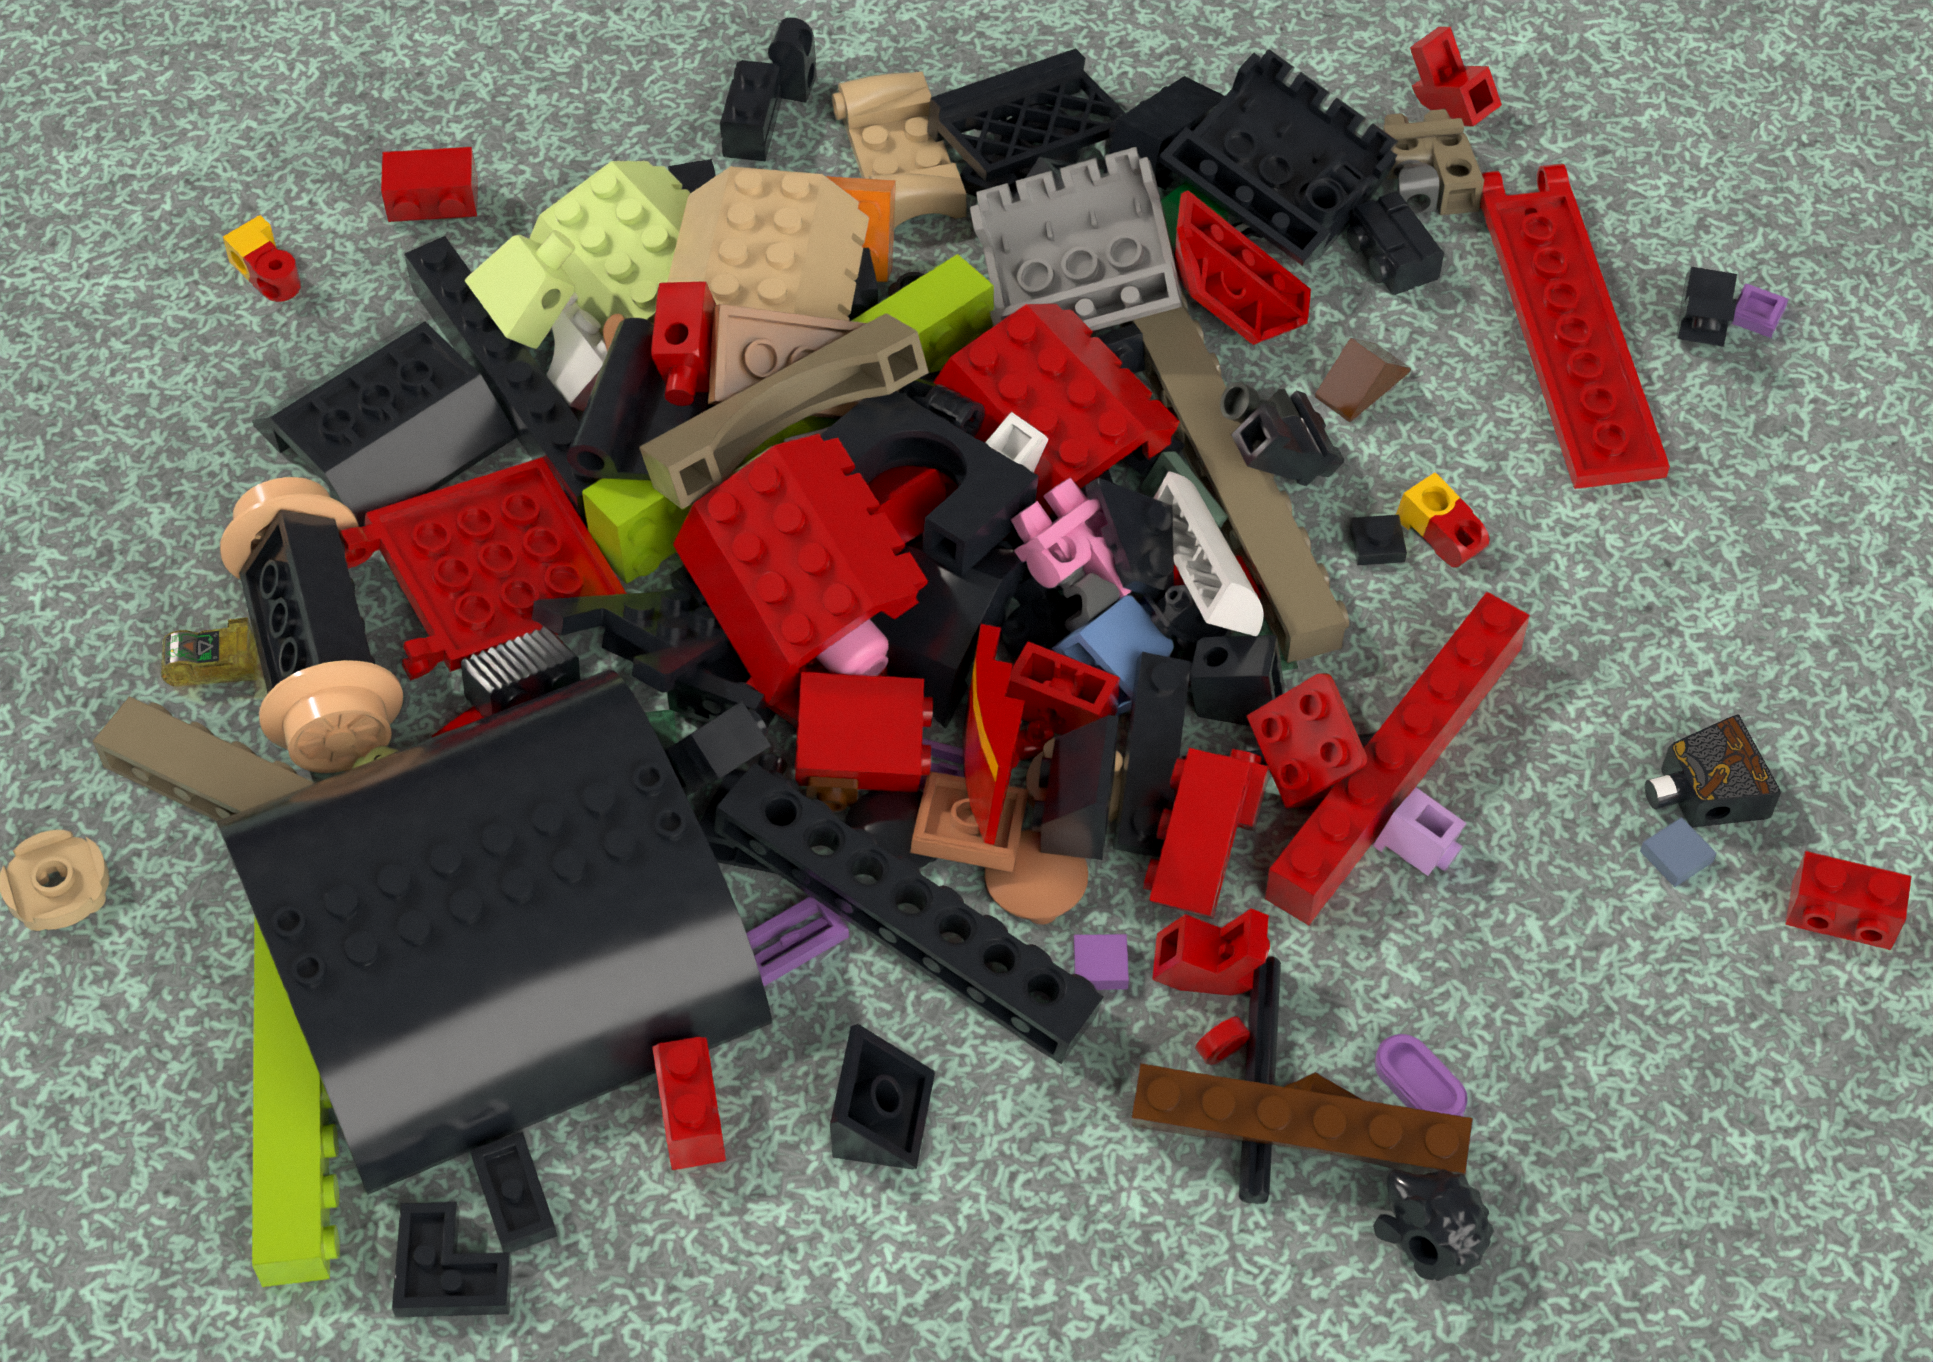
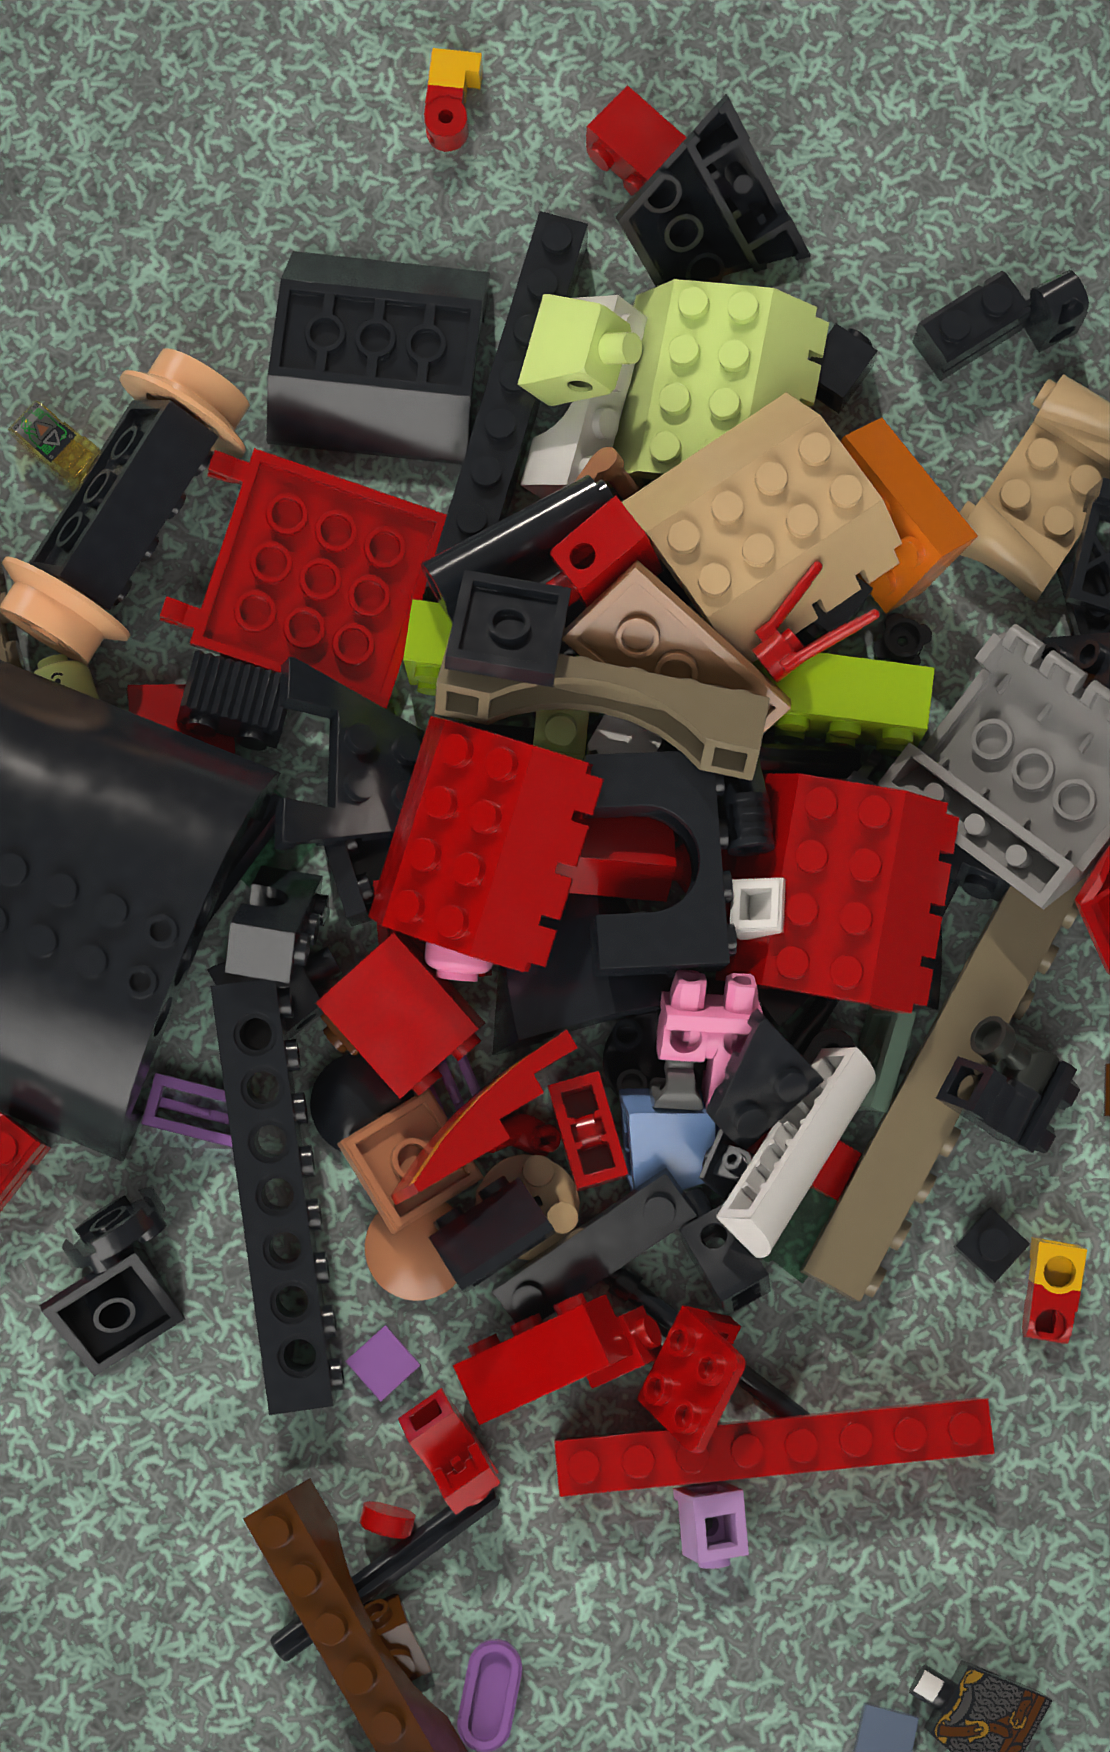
camera: 50 degrees right, 25 degrees up
(511, 166) = (710, 208): none -> black wedge
(677, 406) = (508, 628): none -> black plate
(825, 1042) = (114, 1229): none -> black plate
(860, 301) = (784, 652): none -> red plant

